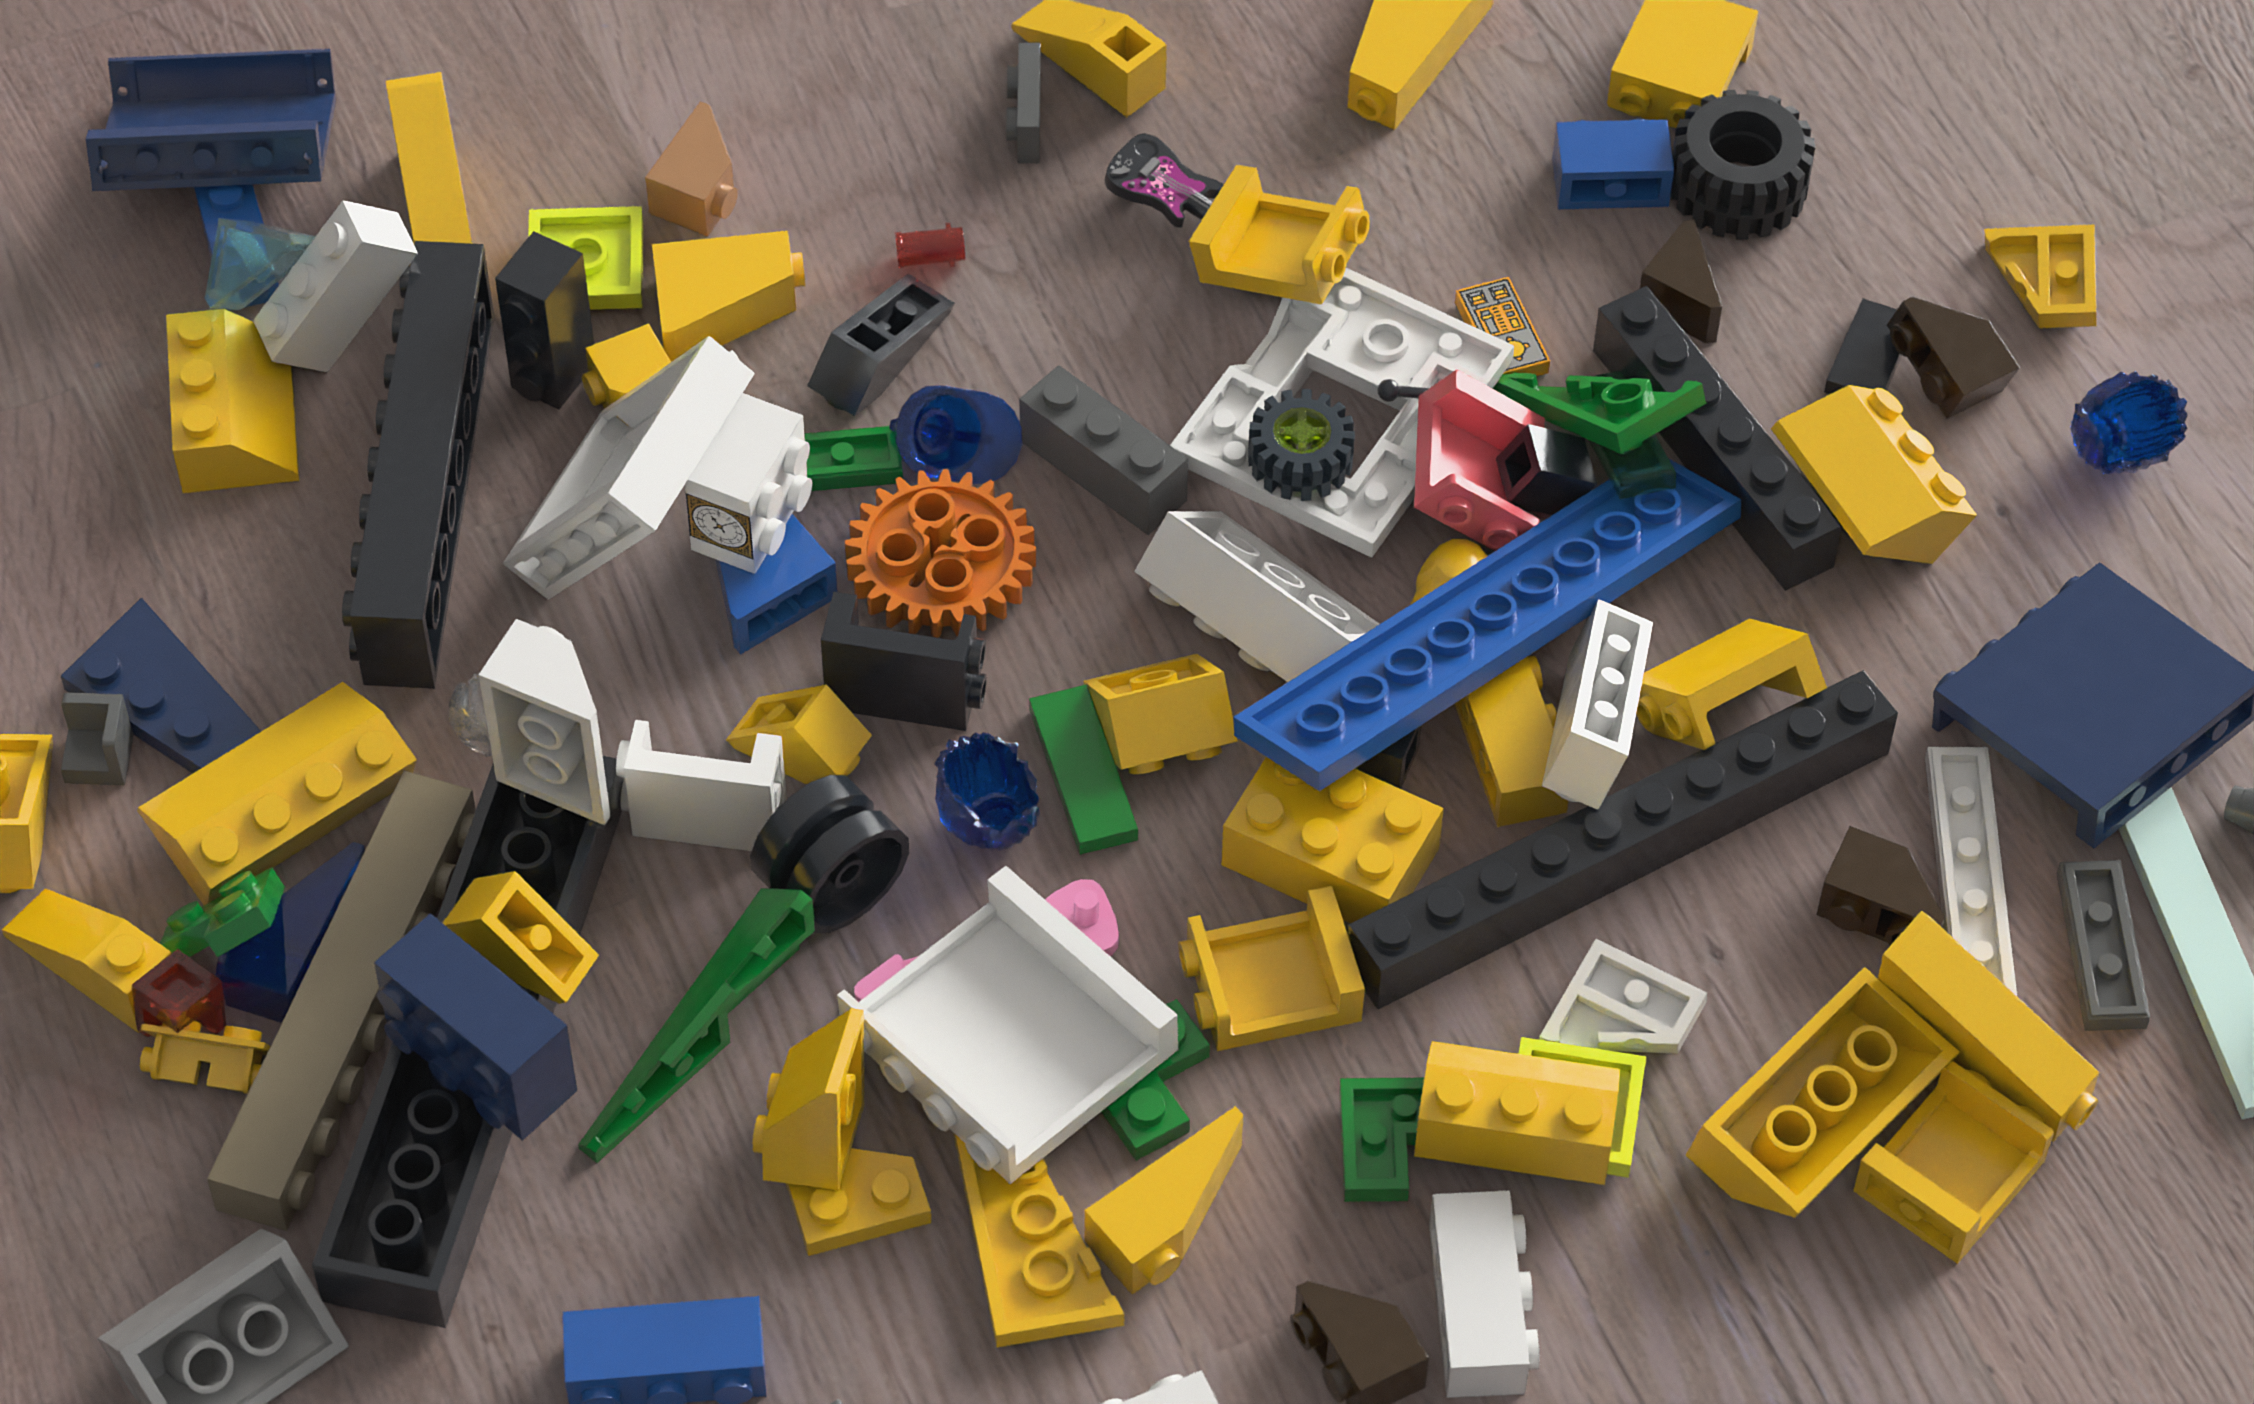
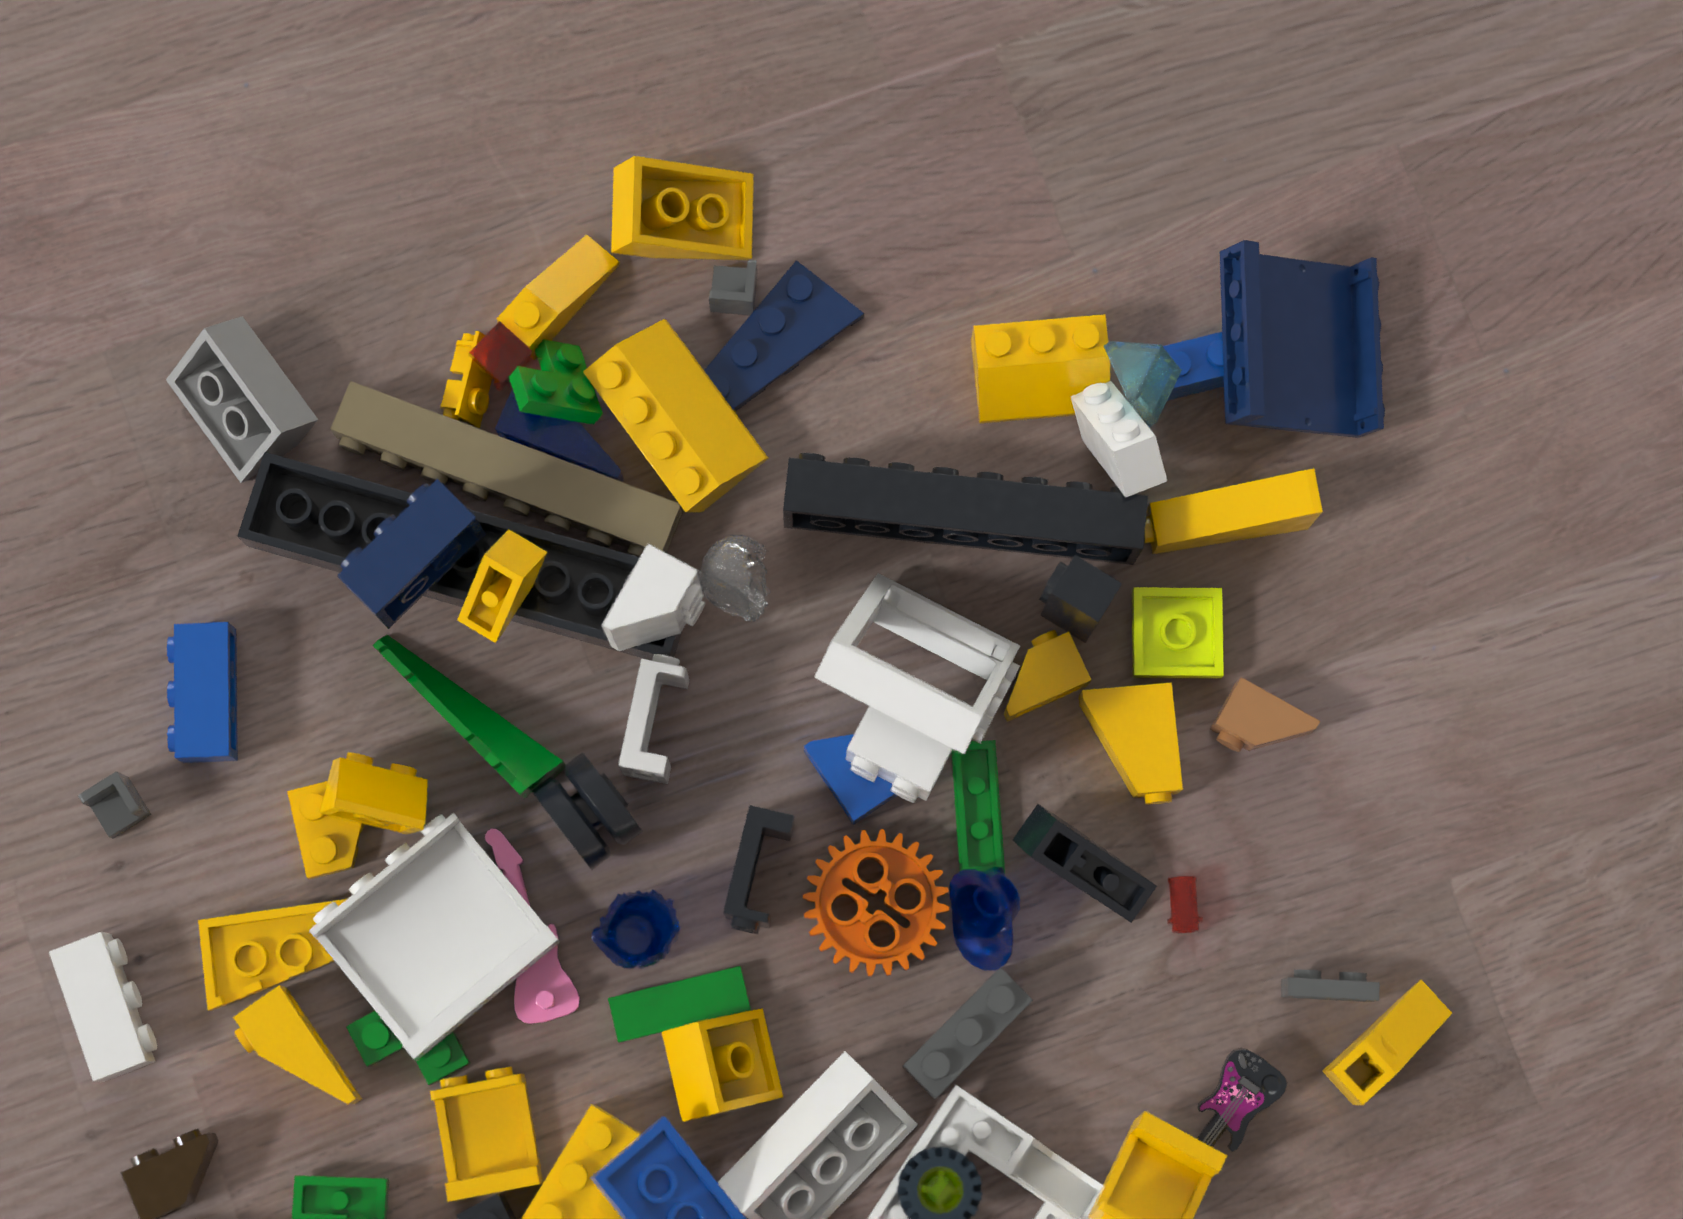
camera: 90 degrees right, 25 degrees up
(815, 729) = (712, 792): yellow slope -> none

